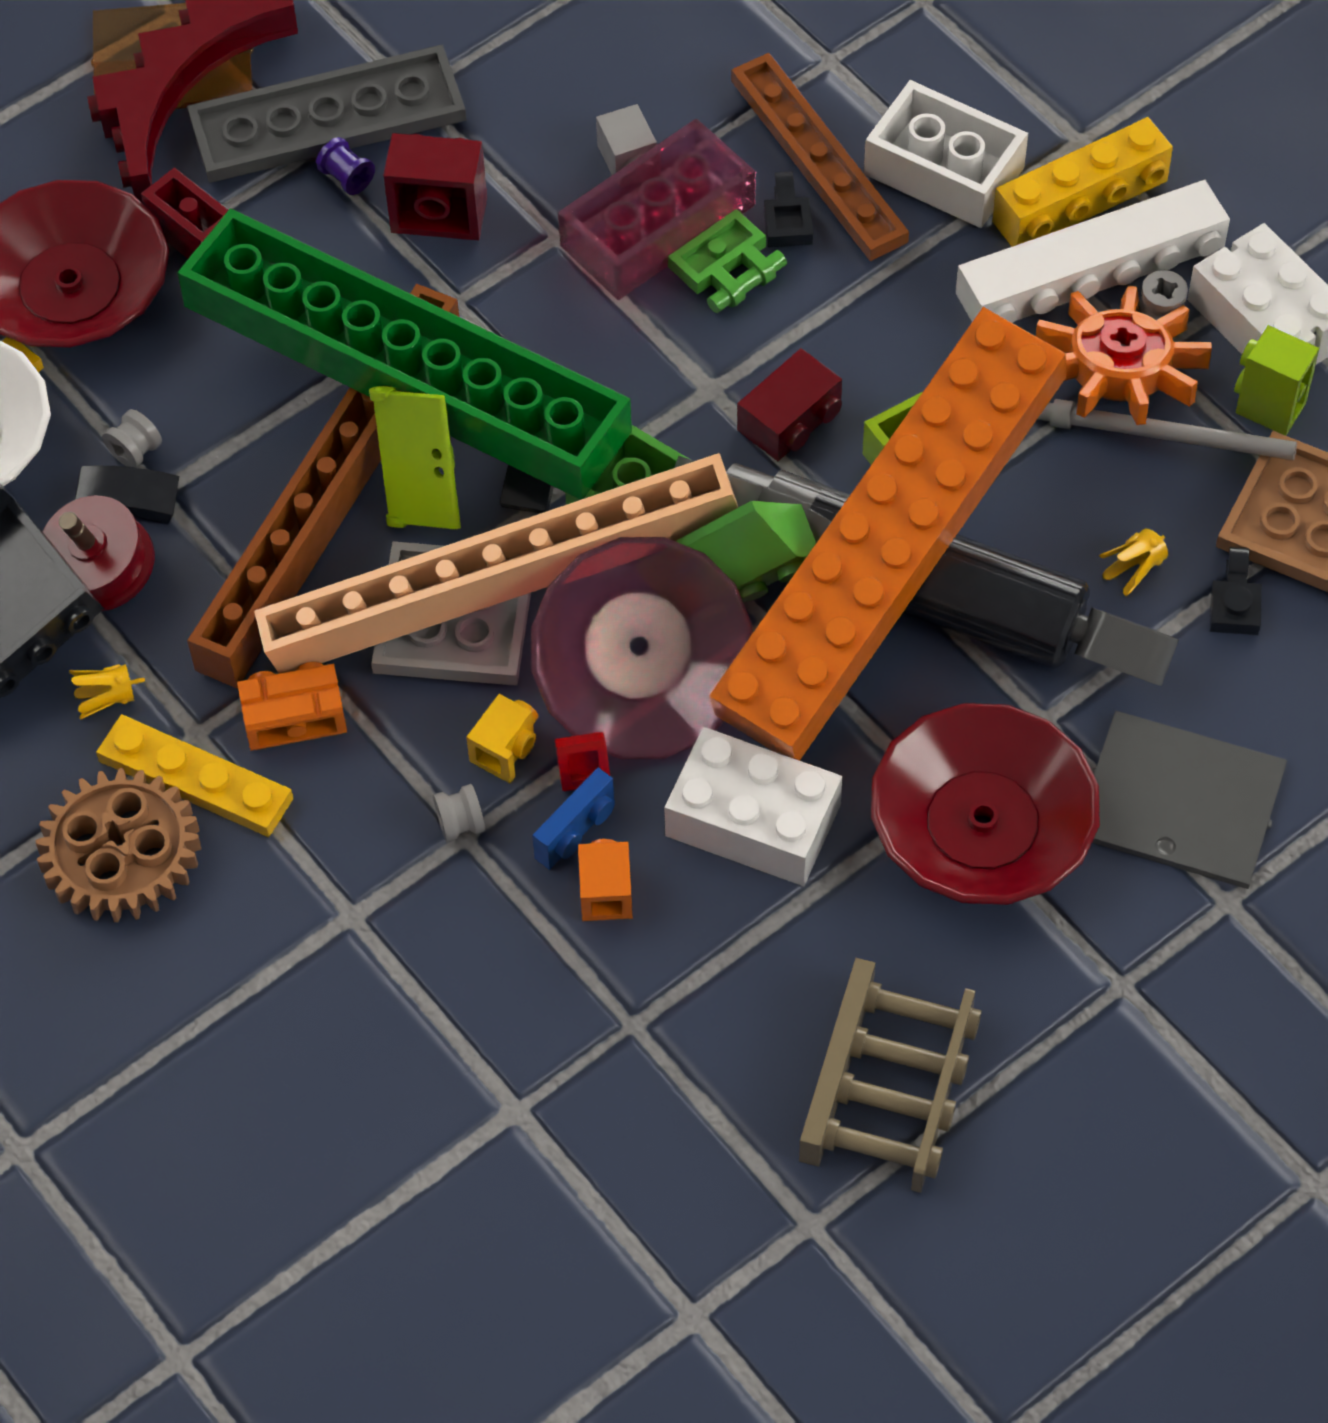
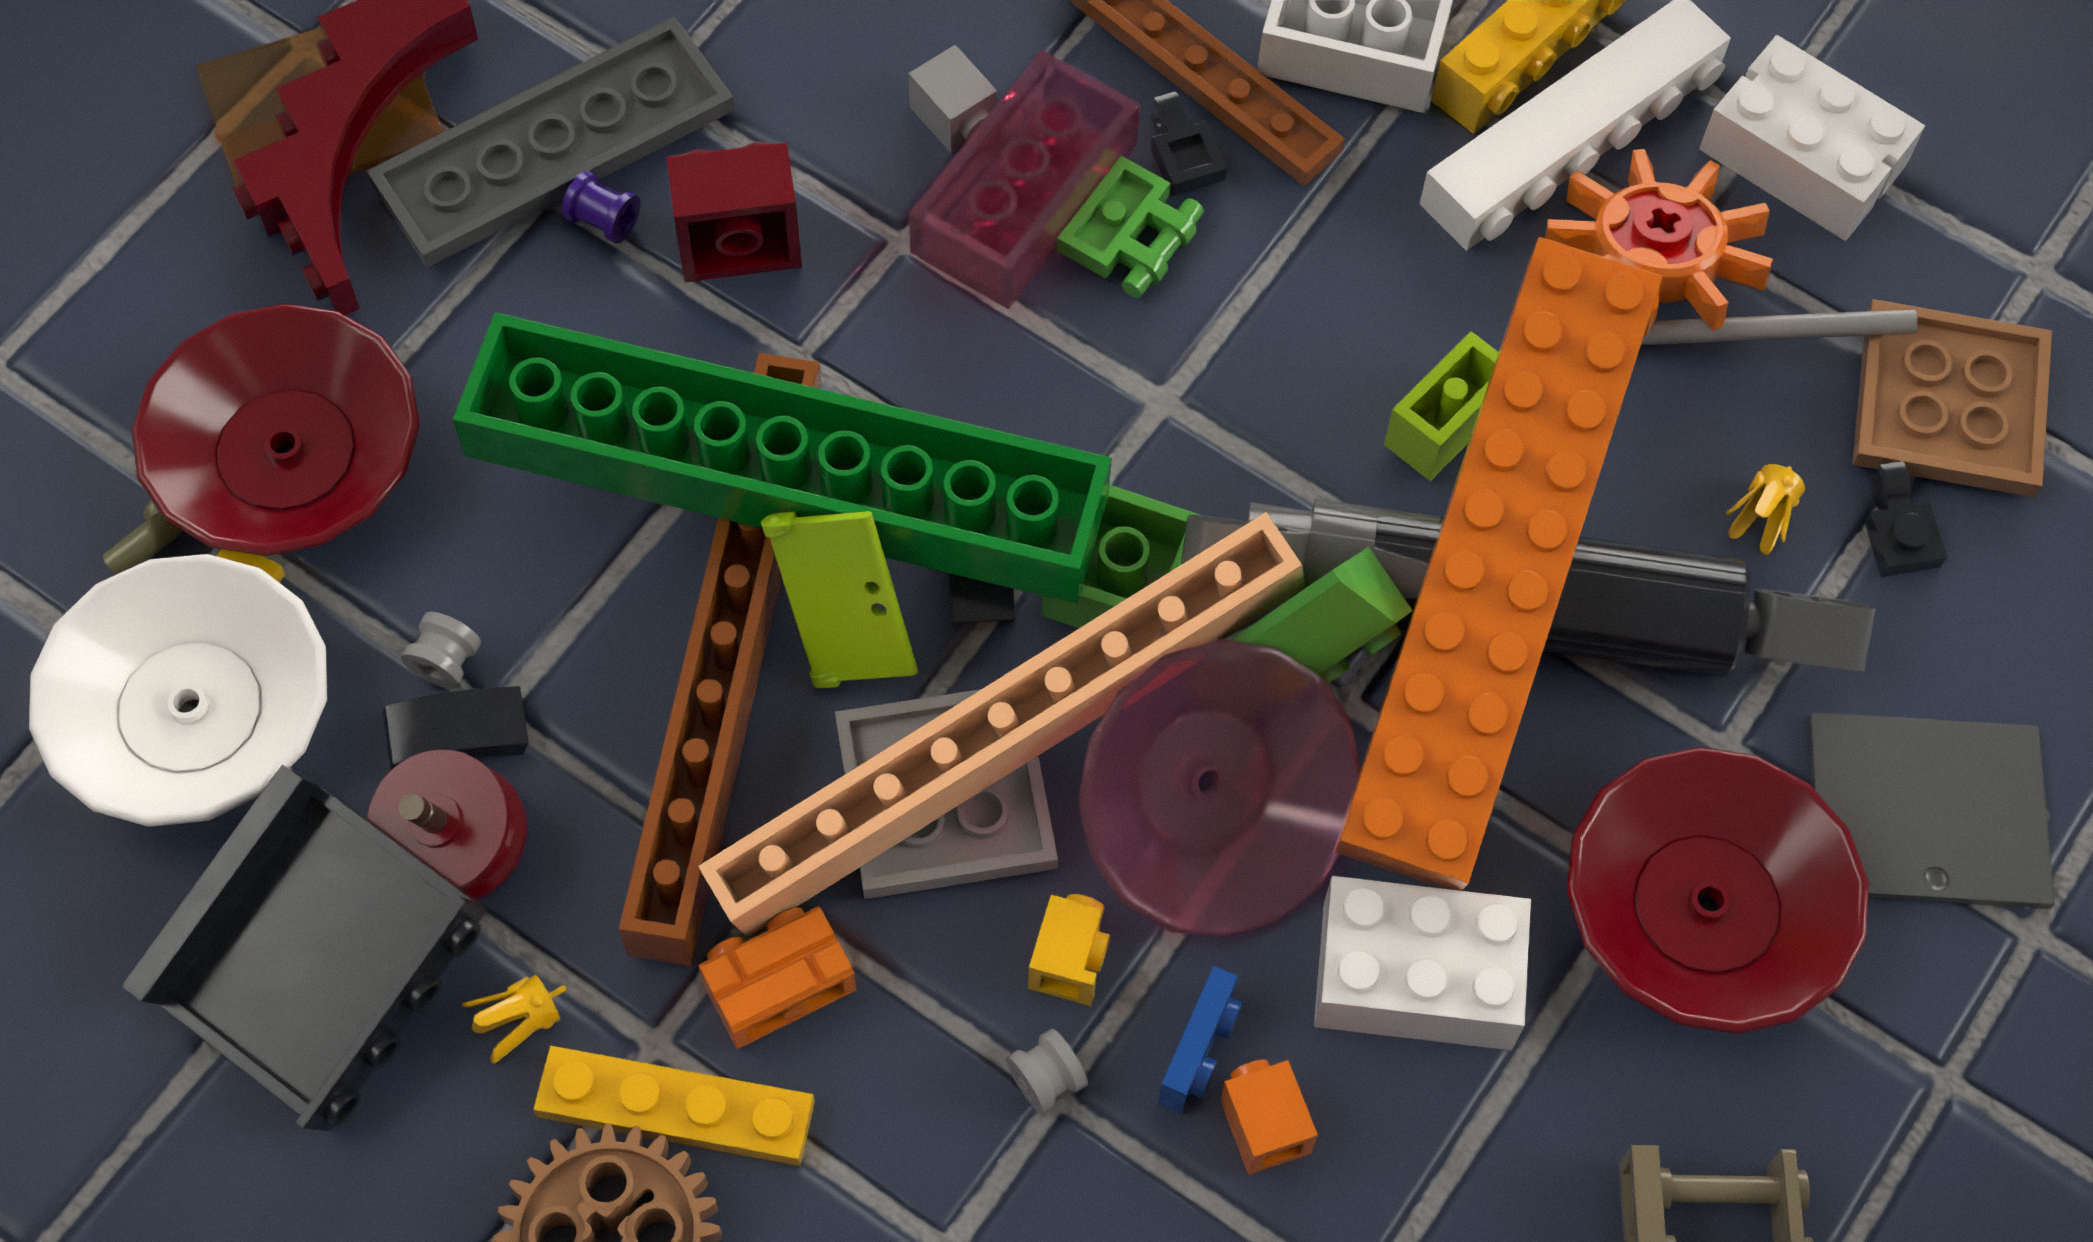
camera: 20 degrees left, 5 degrees up
(183, 211) = (424, 325): dark red brick -> none
(580, 757) = (1181, 955): red plate -> none
(790, 405) = (1277, 401): dark red brick -> none
(1156, 288) = (1683, 138): light grey wheel -> none
(1275, 379) = (1860, 233): lime brick -> none

